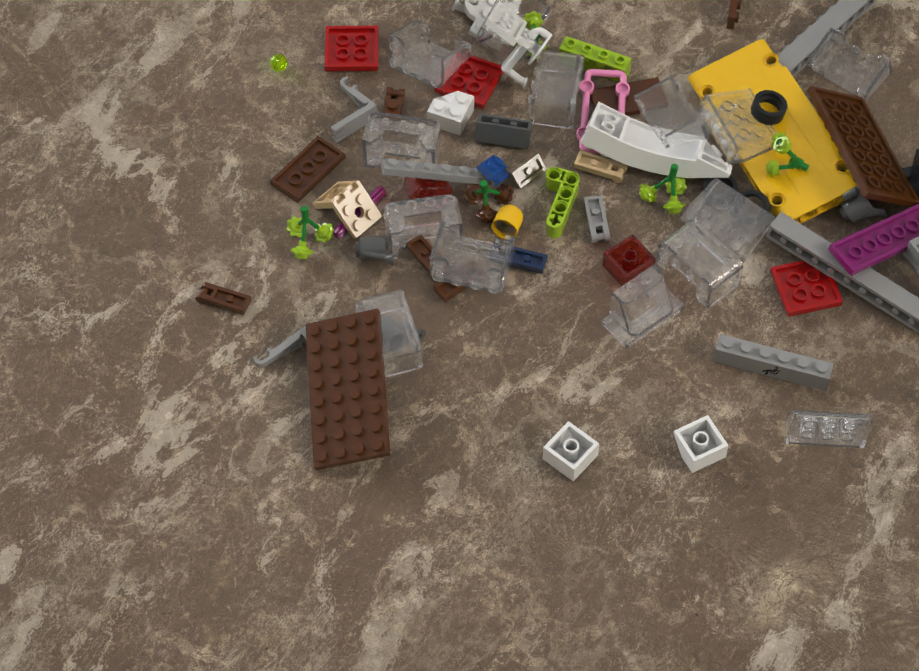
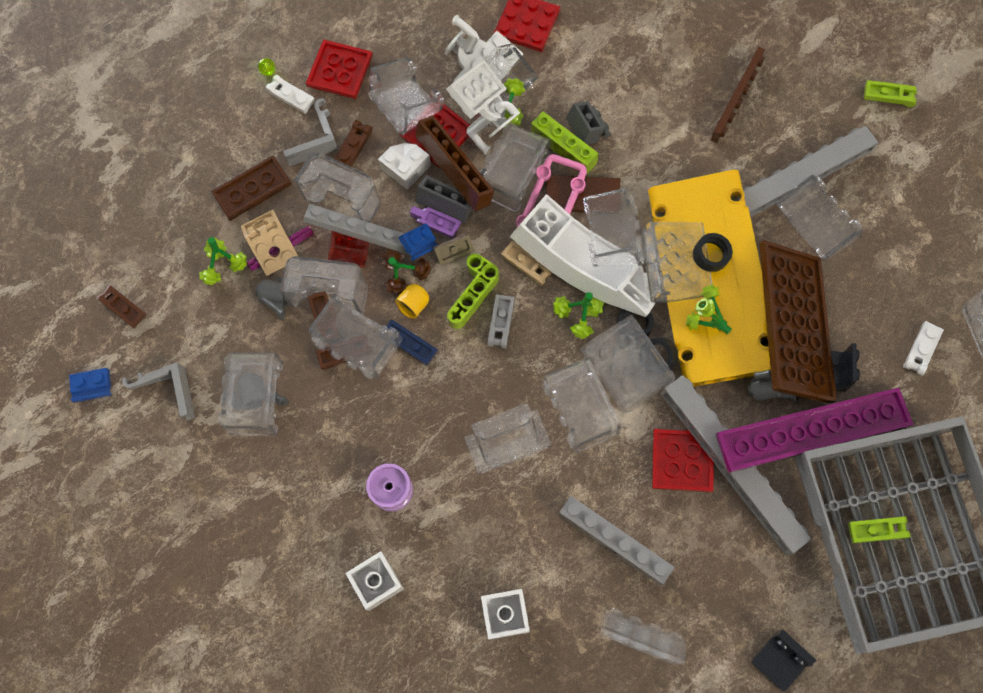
camera: 25 degrees right, 15 degrees up
(221, 373) = (90, 385): none -> blue plate
(311, 81) = (290, 94): none -> white plate
(347, 389) = (185, 448): reddish brown plate -> none
(503, 95) = (454, 163): none -> reddish brown brick
(507, 152) = (436, 221): none -> medium lavender hinge
(552, 374) = (378, 488): none -> lavender wheel
(609, 37) = (587, 122): none -> dark grey brick
(627, 260) = (512, 381): clear red slope -> none

